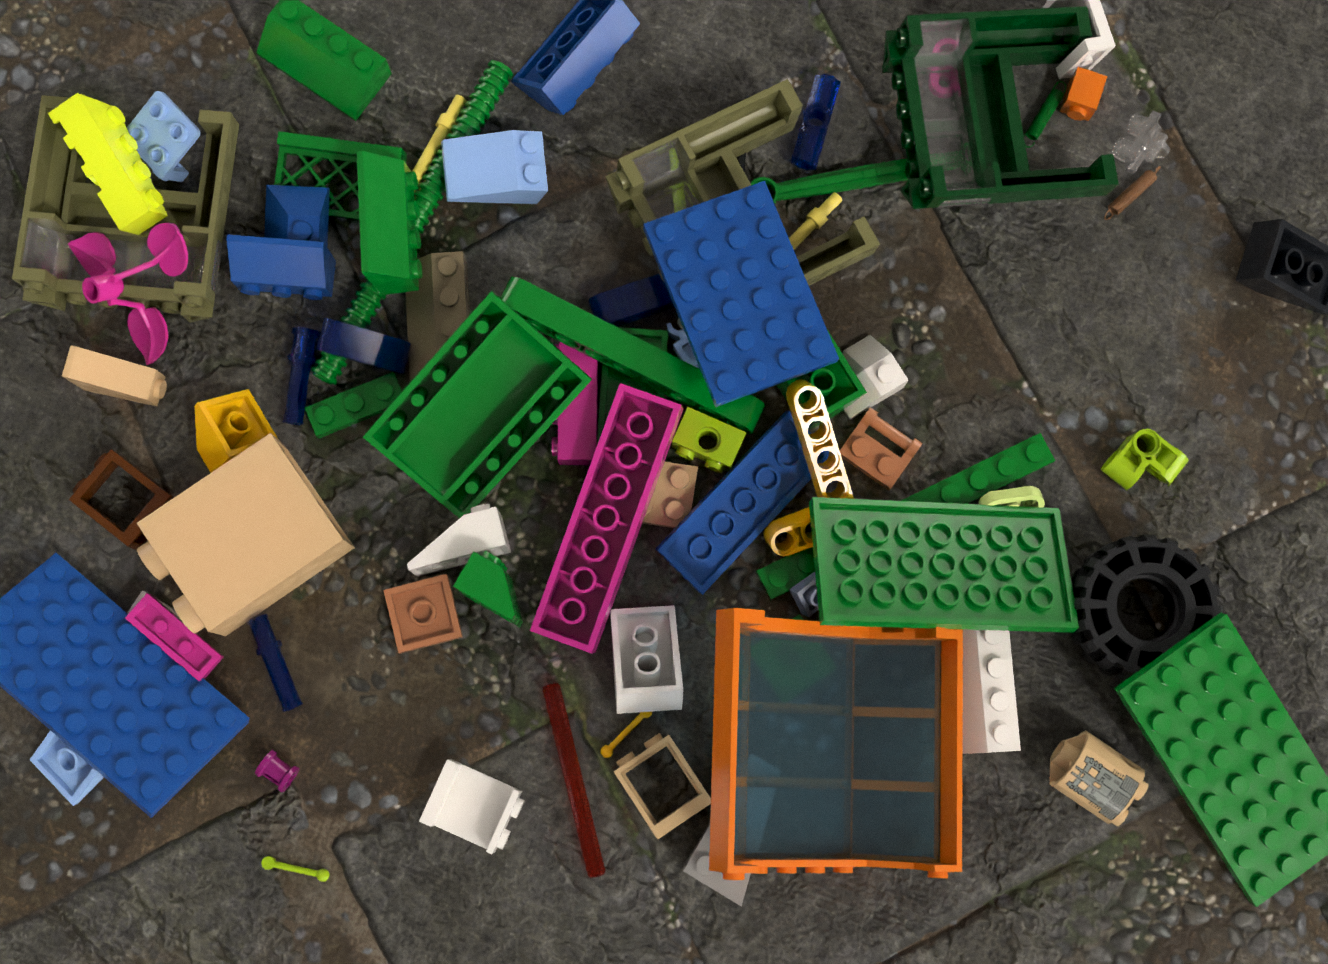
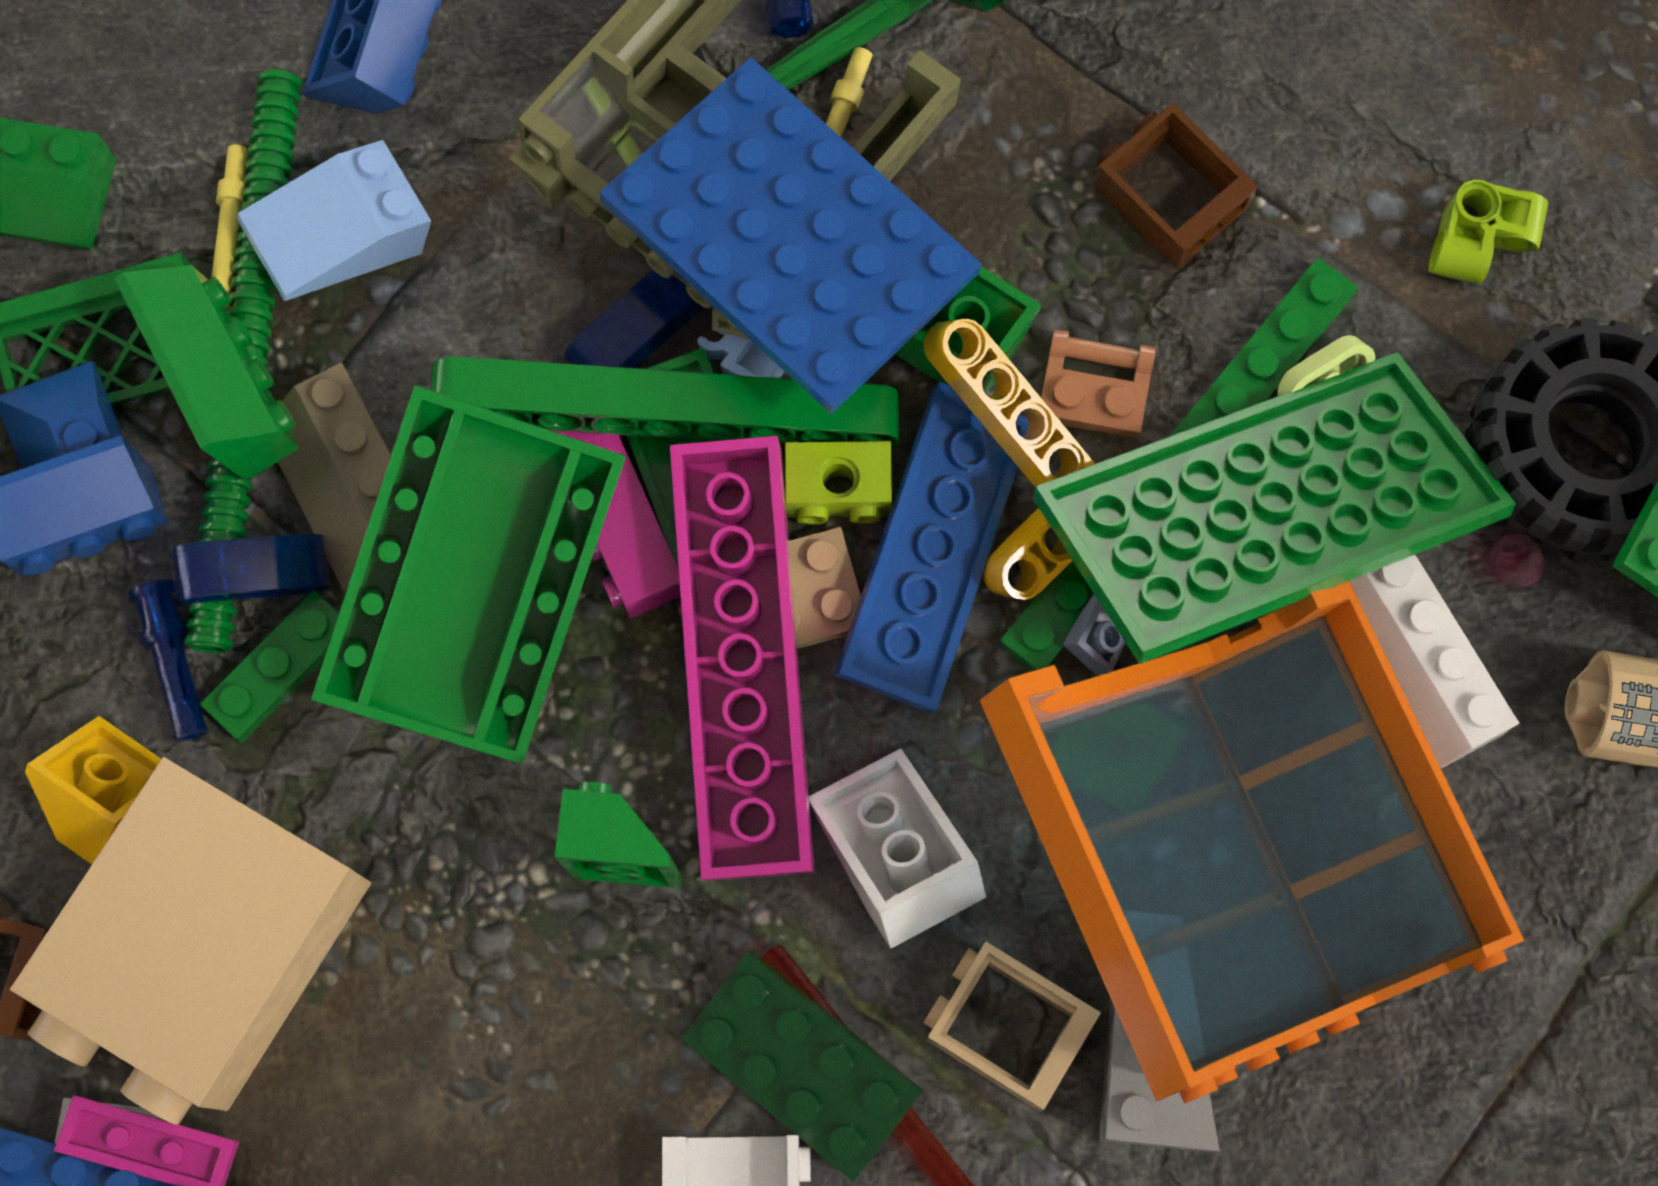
camera: 20 degrees left, 5 degrees down
(274, 661) = (323, 1114): clear blue pin -> none
(423, 613) = (523, 933): nougat plate -> none
(475, 532) = (532, 794): white slope -> none
(540, 754) = (802, 1065): none -> dark green plate
(607, 750) = (901, 1013): yellow hinge -> none
(876, 372) = (1043, 271): white slope -> none
(979, 317) = (1175, 128): none -> reddish brown window
(1067, 657) = (1517, 561): none -> clear pink tile

